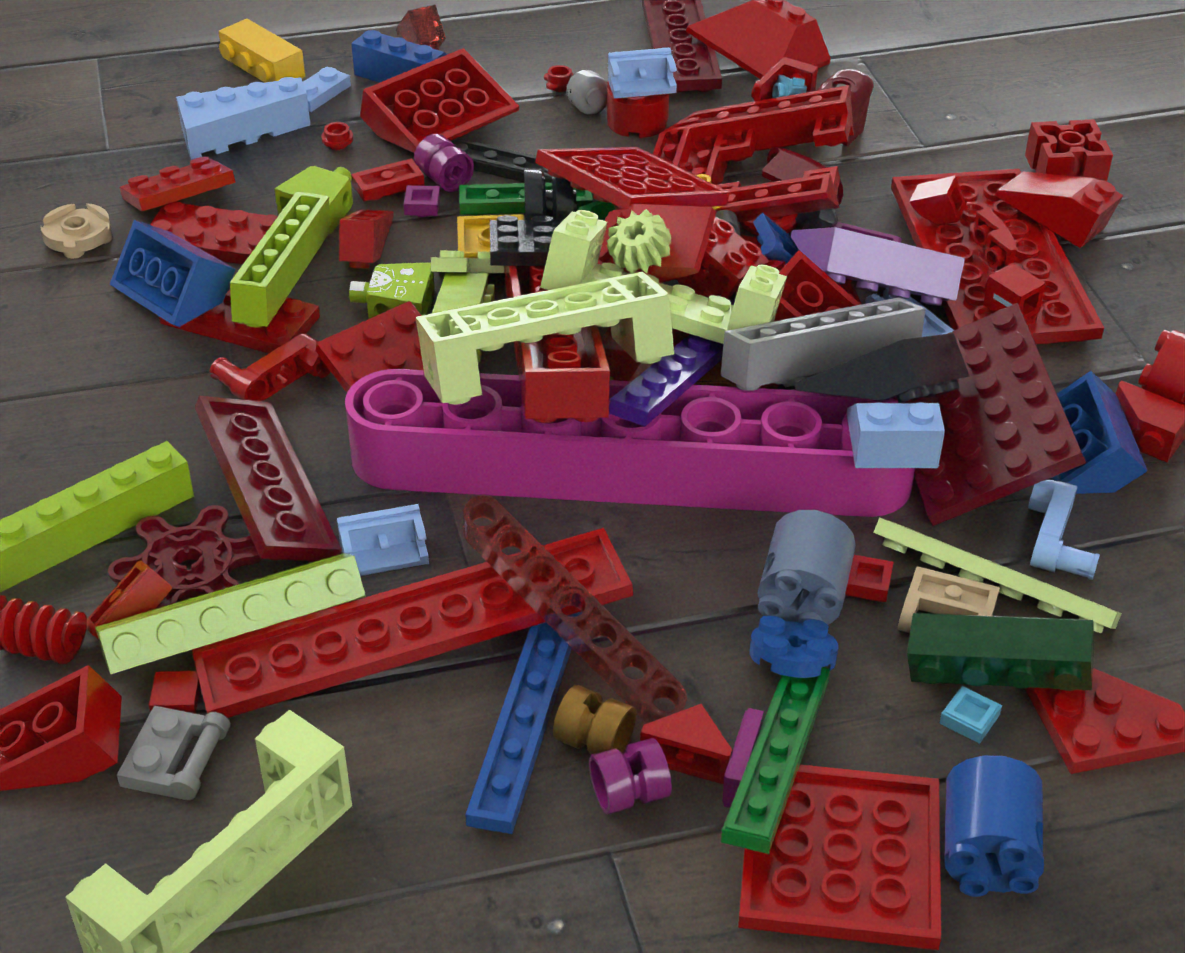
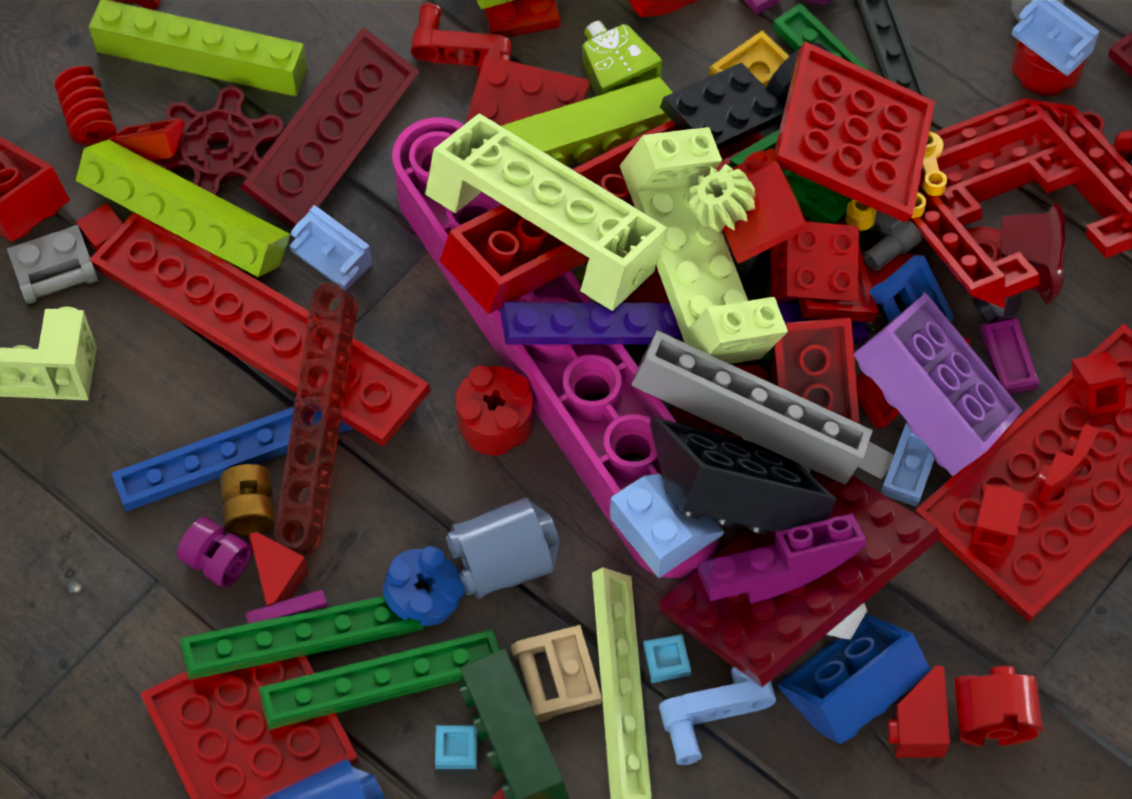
camera: 55 degrees right, 20 degrees up
(455, 262) = (676, 72): yellowish green plate -> none
(658, 515) = (494, 409): none -> red brick
(866, 728) = (373, 680): none -> green tile
(869, 578) = (546, 597): red plate -> none
(982, 392) = (794, 560): none -> magenta slope
(983, 538) = (667, 658): none -> medium azure tile

